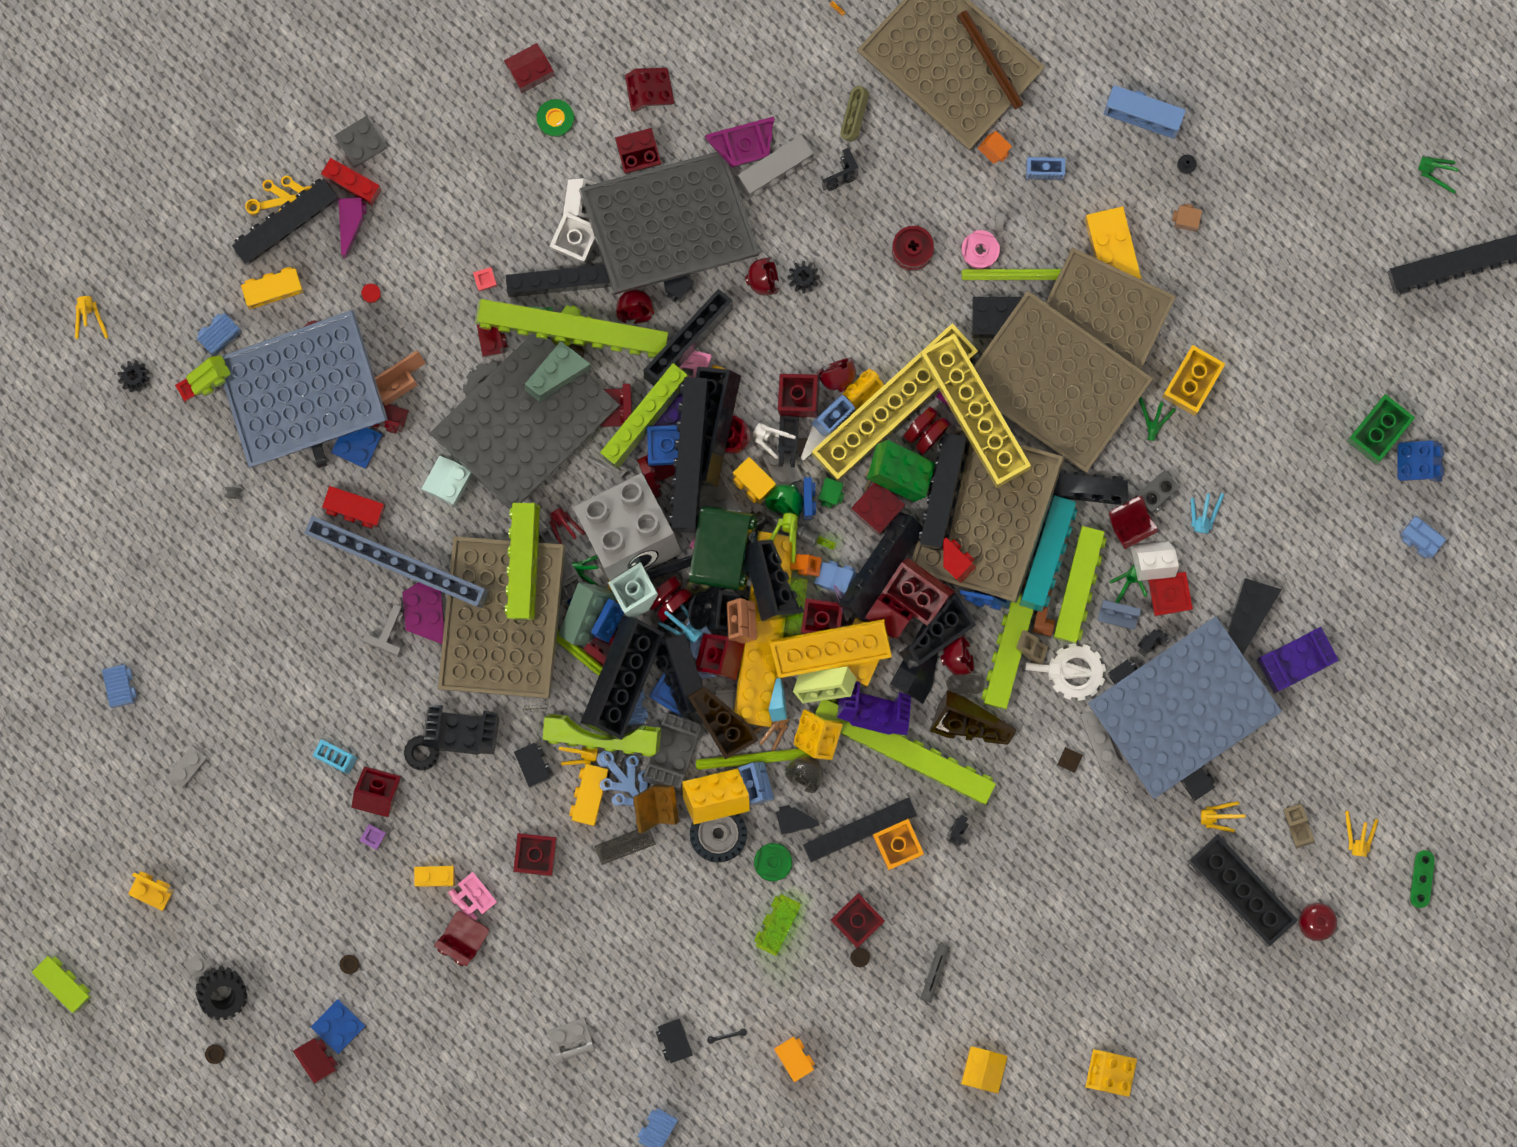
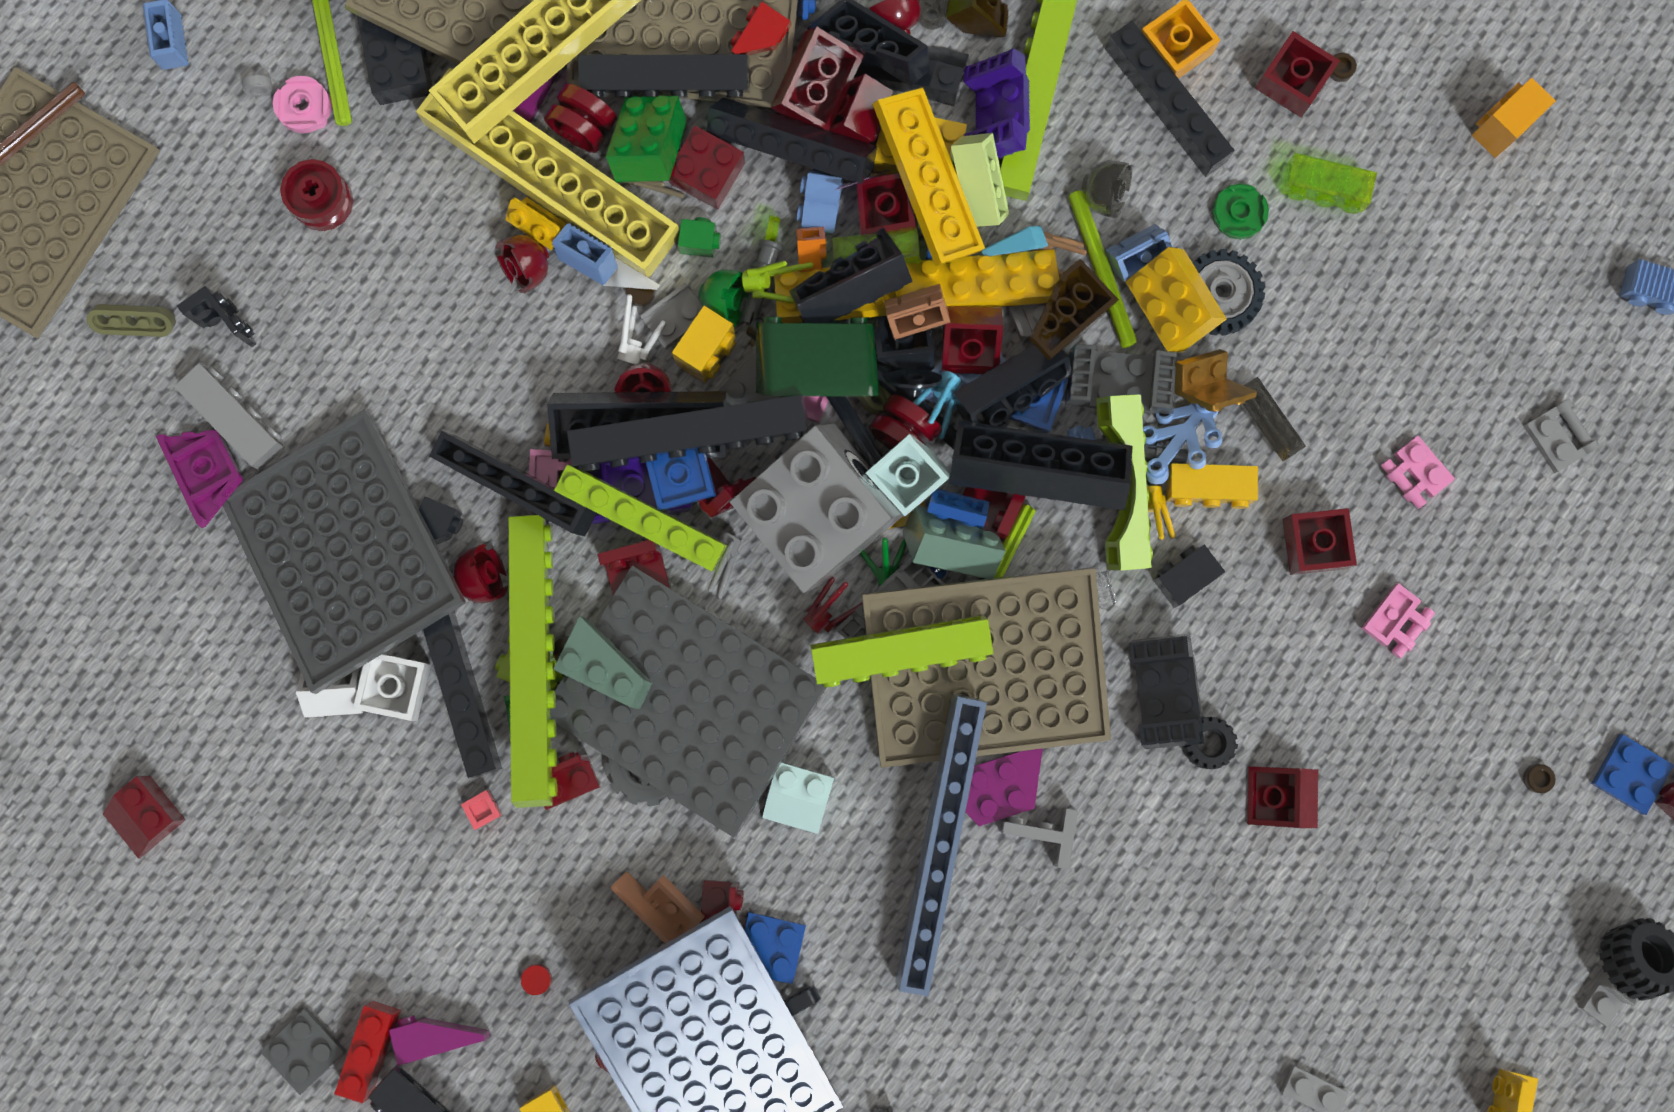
camera: 105 degrees left, 0 degrees up
(349, 763) = (1242, 845): medium azure slope -> none
(353, 507) = (869, 930): red brick -> none
(372, 836) = (1349, 786): medium lavender plate -> none
(434, 876) = (1385, 682): yellow brick -> none
(462, 939) = (1467, 621): dark red bracket -> none
(555, 118) = (214, 759): green tile -> none
(571, 941) = (1423, 467): none -> bright pink plate
(638, 150) = (240, 622): dark red slope -> none
(649, 88) = (142, 630): dark red bracket -> none
(674, 1040) = (1527, 289): black brick -> none
(742, 1032) = (1485, 204): black hinge -> none
(762, 277) = (400, 400): dark red cylinder -> none
(790, 425) = (642, 311): black hinge -> none
(794, 820) = (1178, 191): black slope -> none
(798, 395) = (565, 309): dark red brick -> none
(808, 273) = (397, 347): black gear -> none
(809, 491) = (702, 263): blue plate -> none
(817, 736) = (1053, 182): yellow bracket -> none
(995, 147) = (146, 110): orange brick -> none

